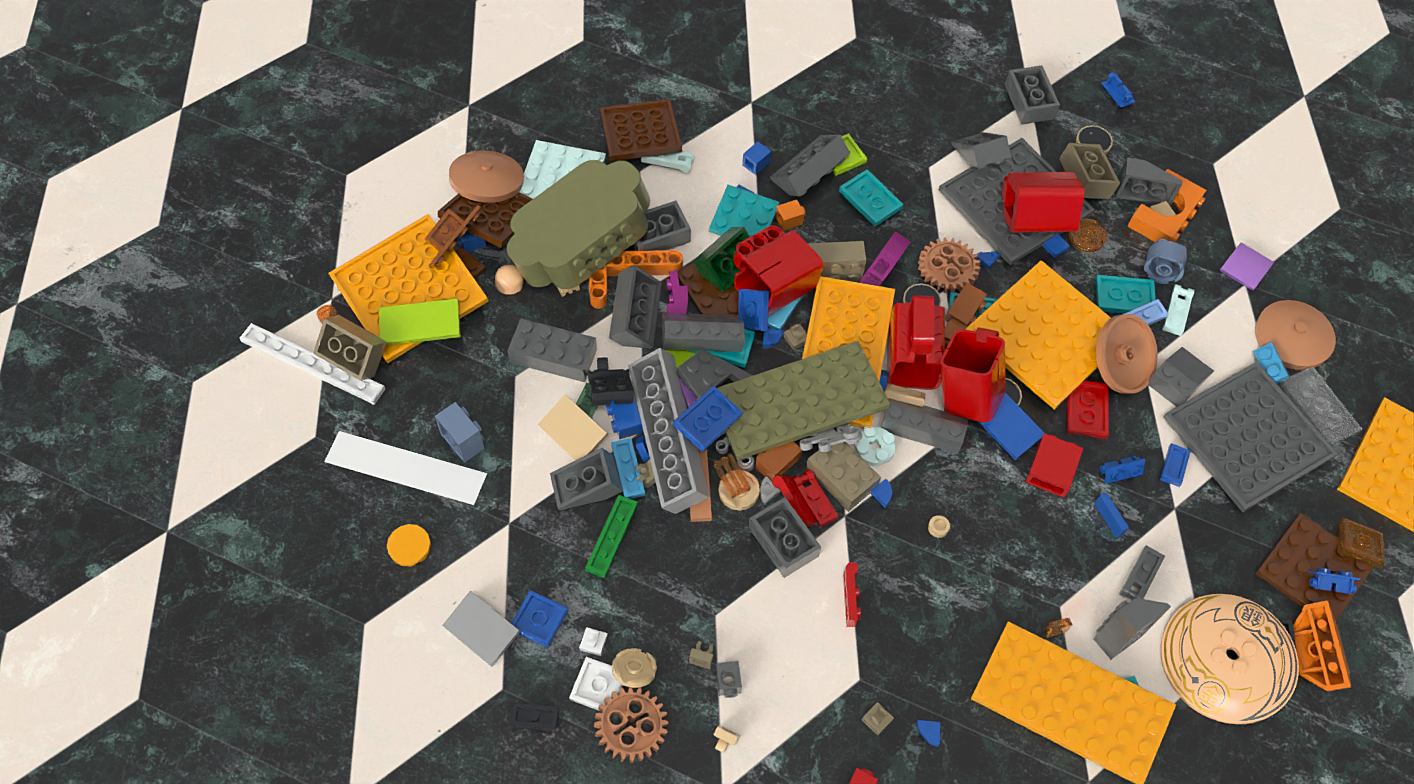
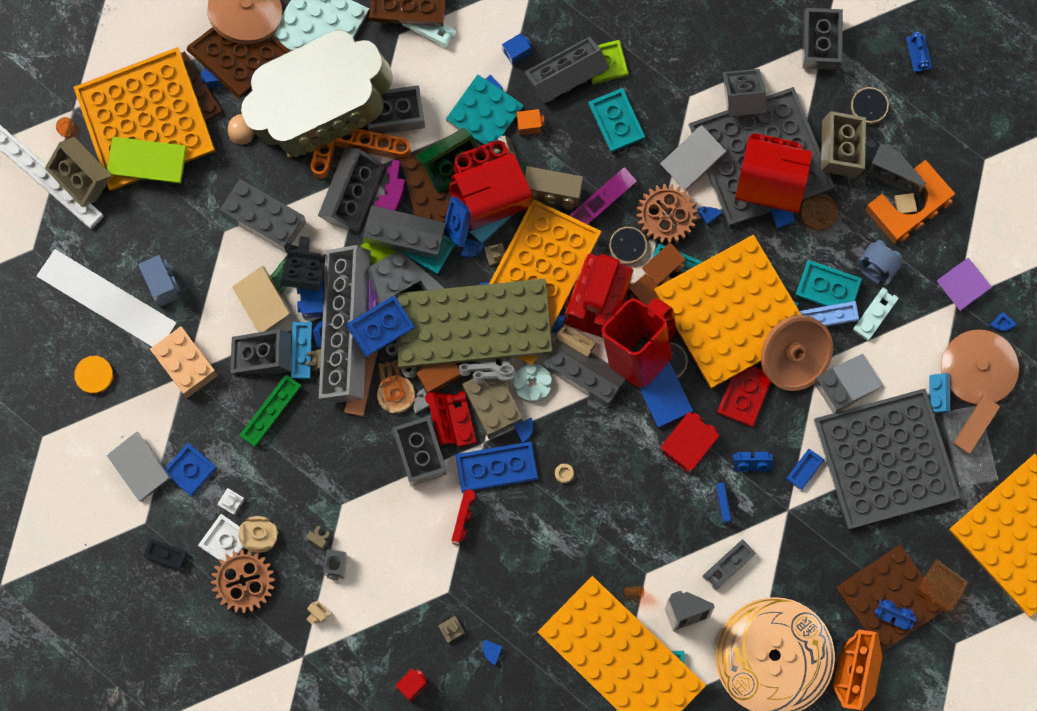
camera: 20 degrees right, 15 degrees up
(445, 232) = (189, 74): dark orange bracket -> none
(505, 508) = (183, 362): none -> light nougat brick
(867, 536) = (496, 467): none -> blue tile
(956, 211) = (693, 158): none -> light grey tile
(1296, 292) = (1002, 323): none -> blue tile
(1320, 383) = (976, 425): none -> nougat tile

